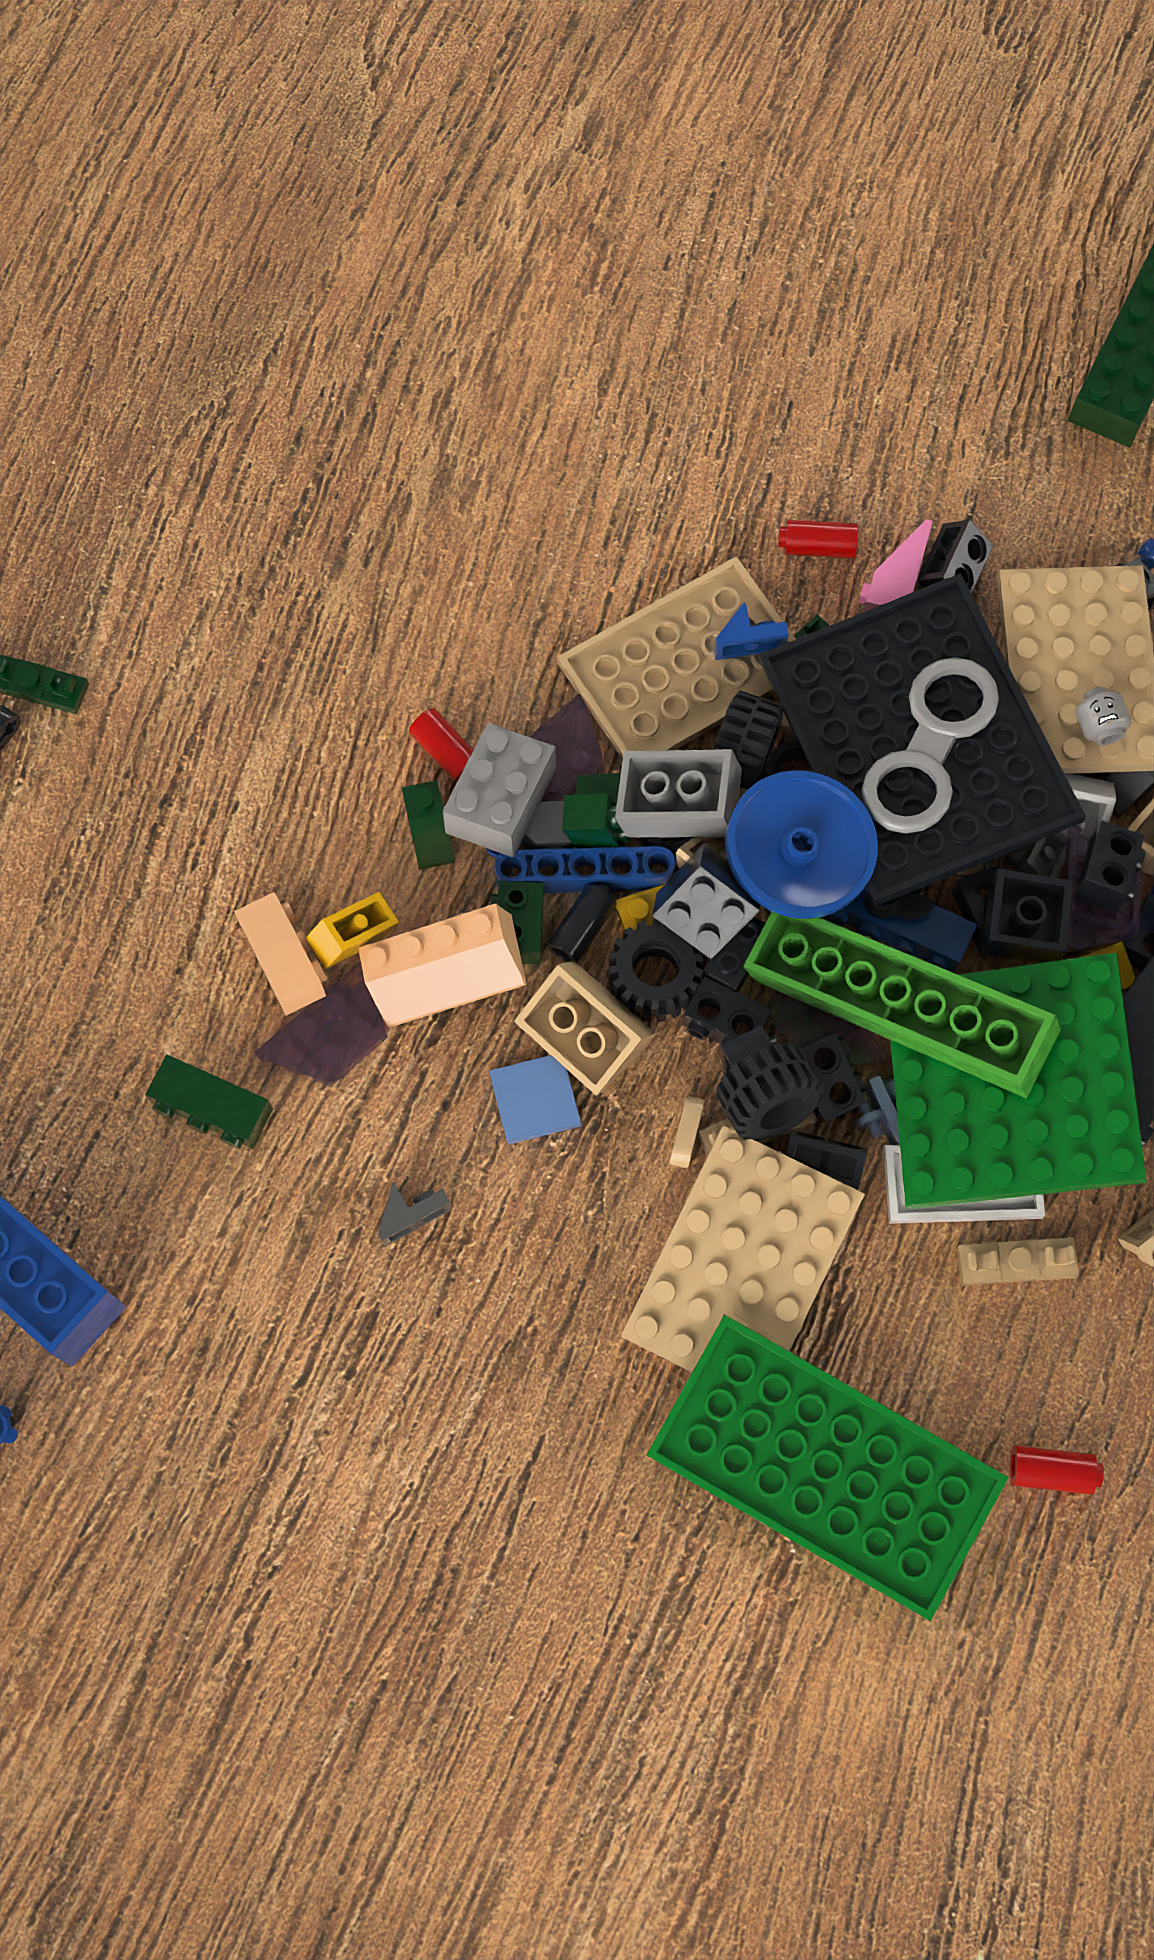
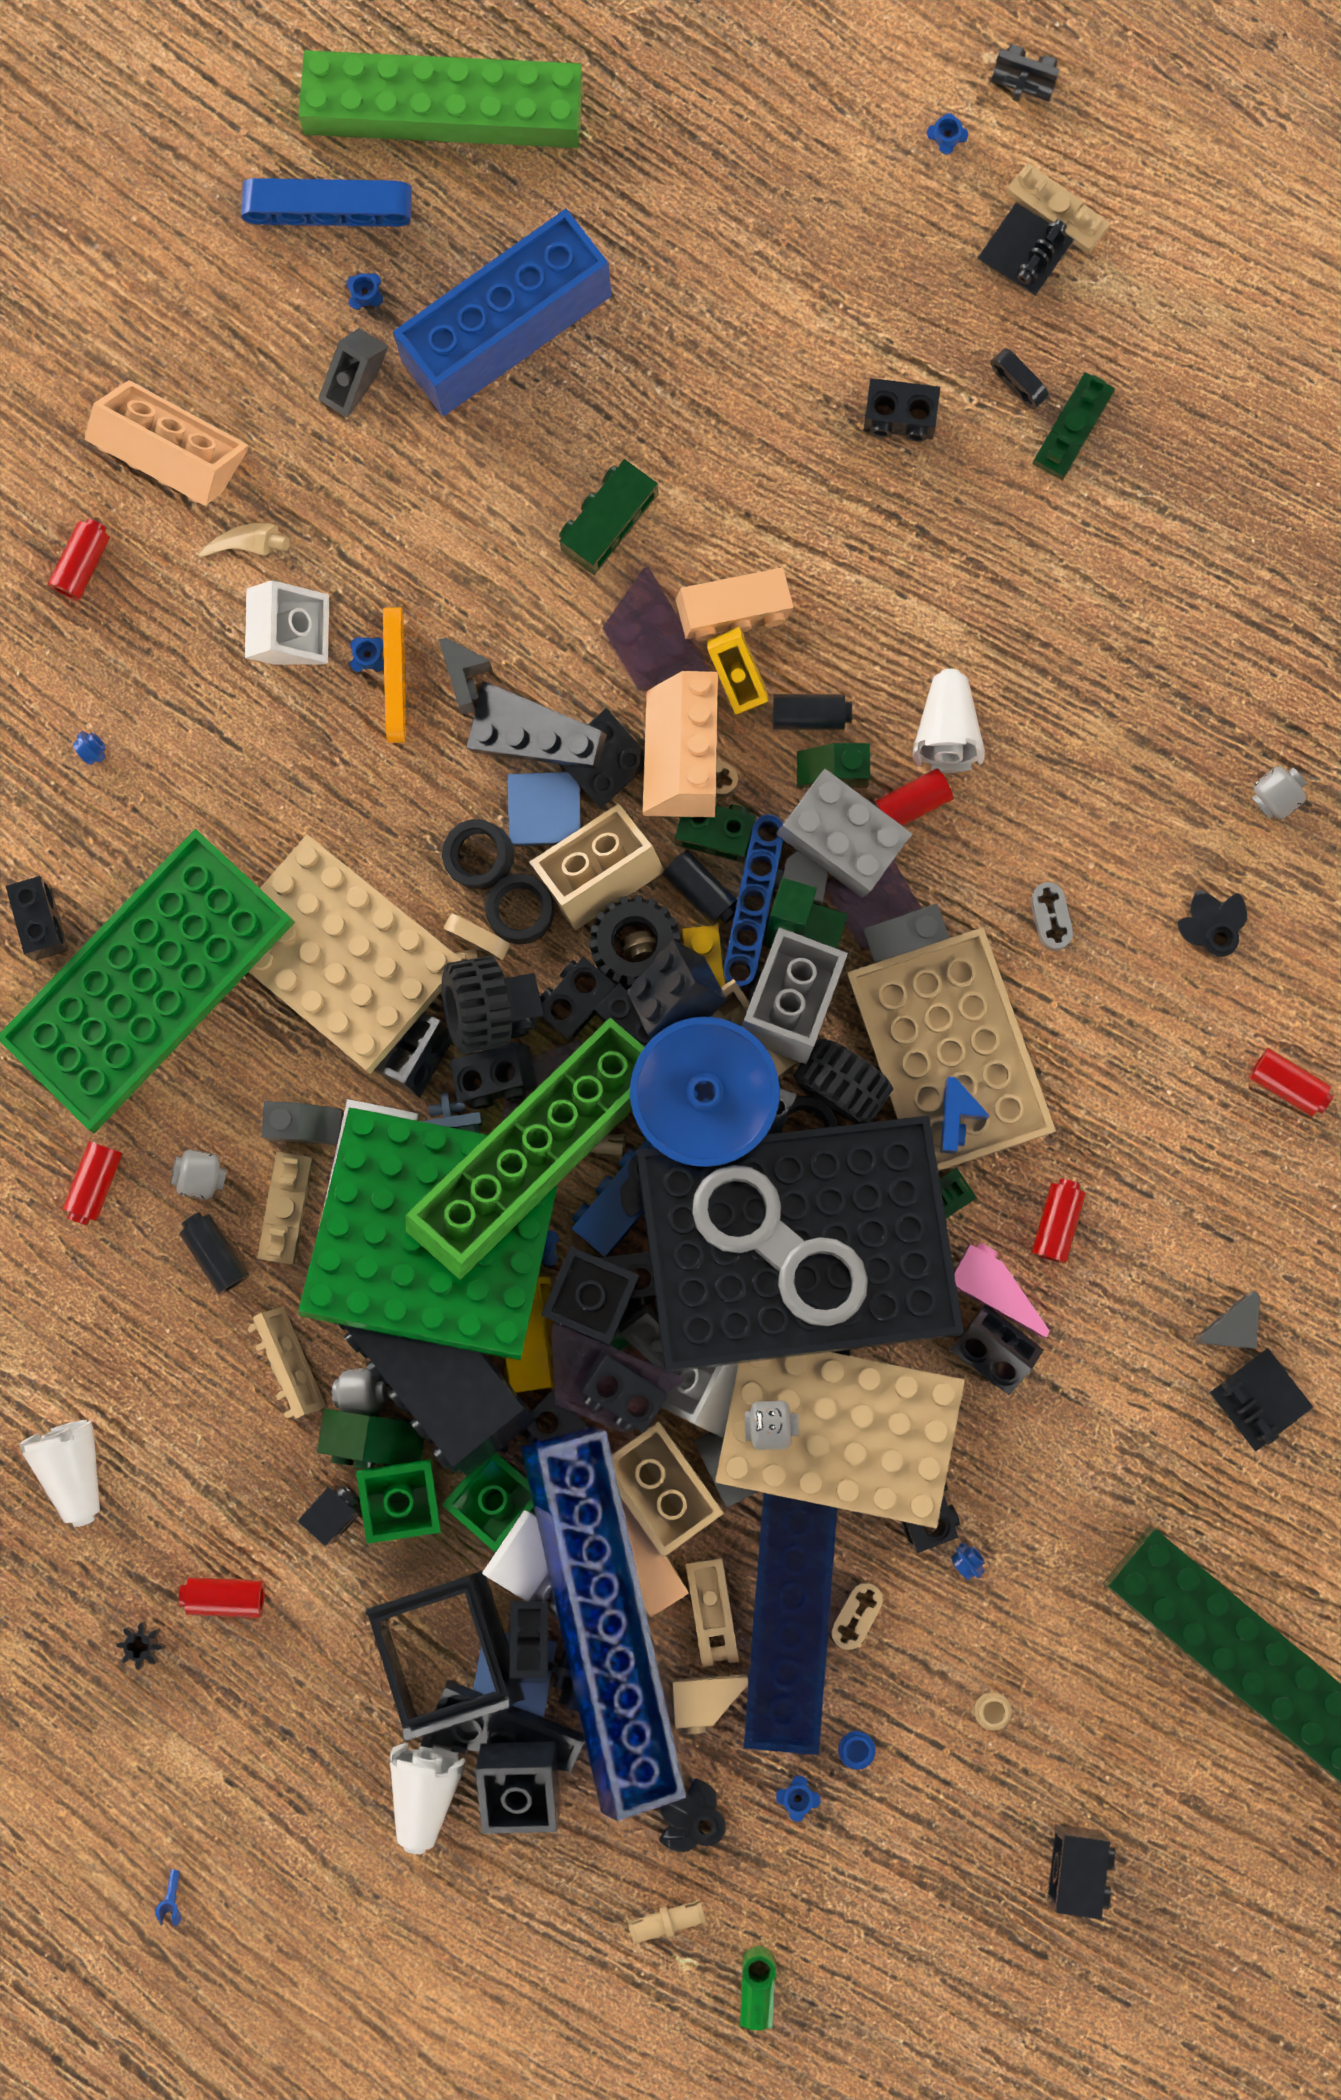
camera: 110 degrees right, 10 degrees up
(34, 841) = (902, 399): none -> black brick
(93, 1415) = (352, 371): none -> dark grey slope
(210, 1610) = (165, 442): none -> light nougat slope
(302, 1487) = (254, 537): none -> tan bar
(362, 725) = (949, 726): none -> white cone
(365, 432) = (1279, 792): none -> light grey head
(367, 1674) = (79, 559): none -> red brick
(377, 858) = (811, 711): none -> black brick
(396, 1416) = (286, 625): none -> white slope
(399, 1315) = (360, 647): none -> blue plate
(426, 1284) = (394, 675): none -> light orange beam
(459, 1128) = (528, 731): none -> wing
(470, 1049) = (619, 764): none -> black hinge
(498, 470) = (1214, 918): none -> black plate
(529, 604) = (1060, 915): none -> light grey beam
(581, 1603) = (89, 748): none -> blue plate
(582, 716) = (906, 933): none -> dark grey slope
(628, 1159) = (455, 840): none -> black tyre
(636, 375) = (1291, 1083): none -> red brick
(646, 1067) = (504, 886): none -> black tyre
(655, 969) = (639, 946): none -> tan plate
(788, 1609) = (36, 918): none -> black brick
(869, 379) = (1236, 1326): none -> dark grey slope
(929, 349) = (1261, 1400): none -> black hinge
(929, 1264) = (301, 1123): none -> dark grey slope
(1013, 1358) = (197, 1174): none -> light grey head
(1088, 1320) = (213, 1253): none -> black brick

